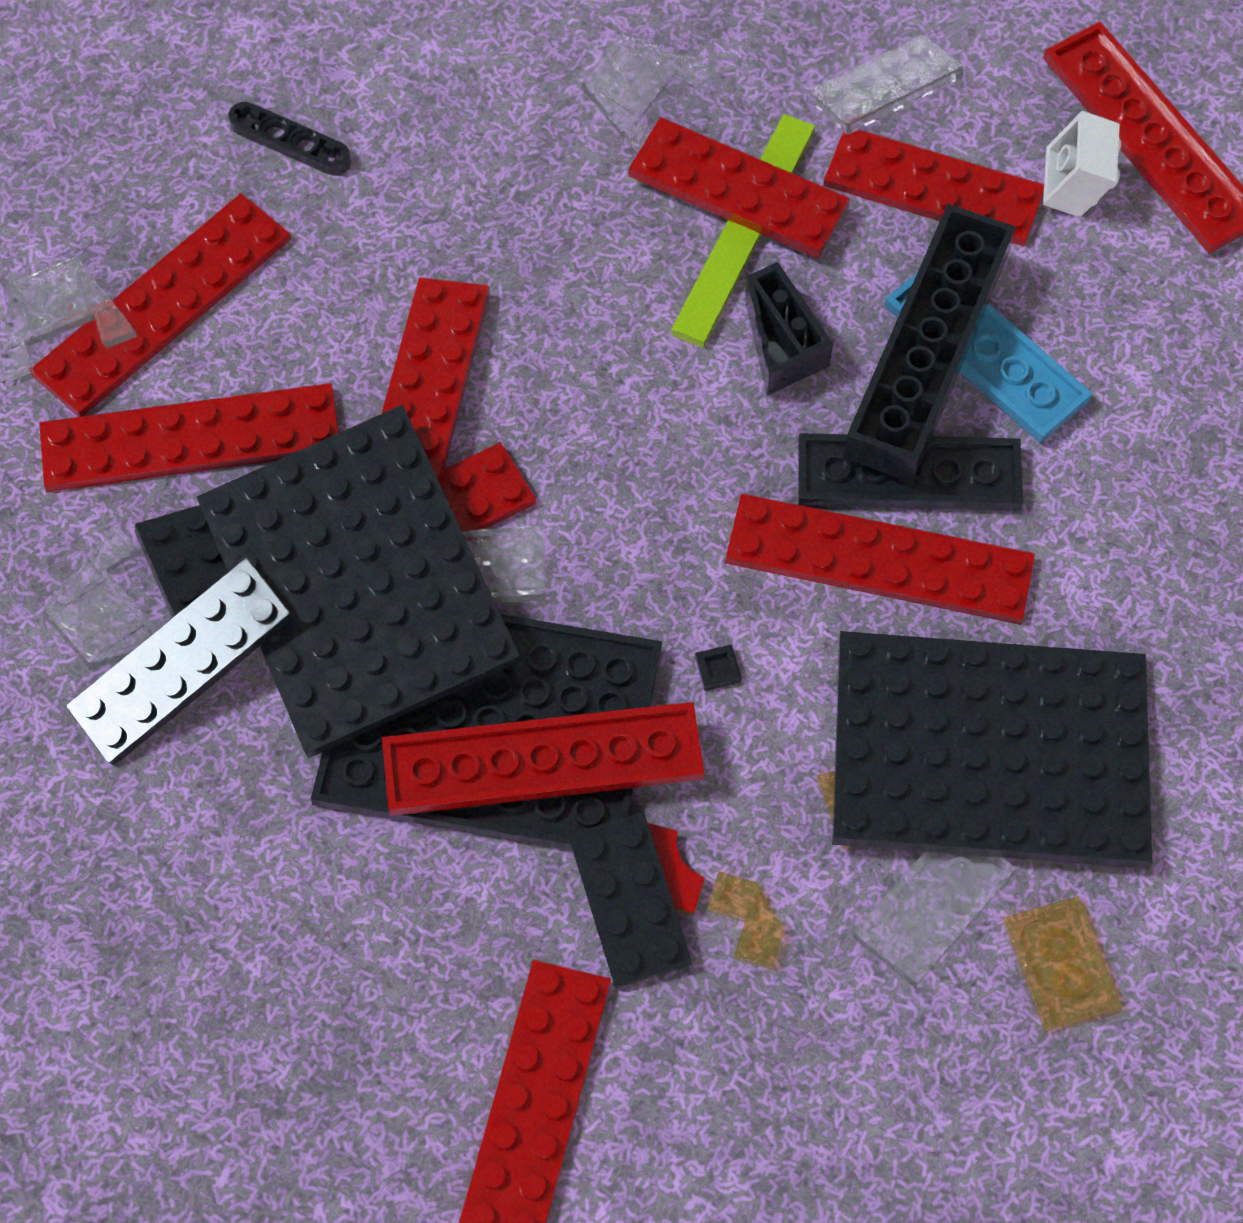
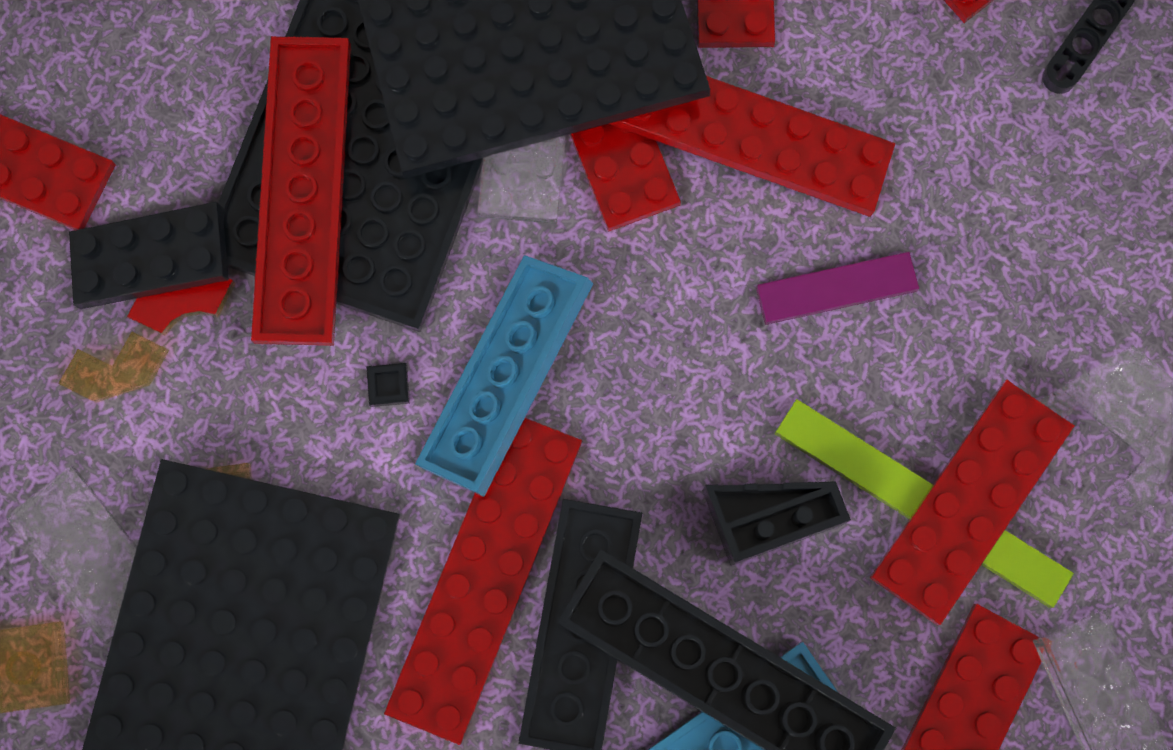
camera: 100 degrees right, 15 degrees up
(562, 311) = (837, 288): none -> magenta tile
(693, 559) = (504, 374): none -> dark azure plate

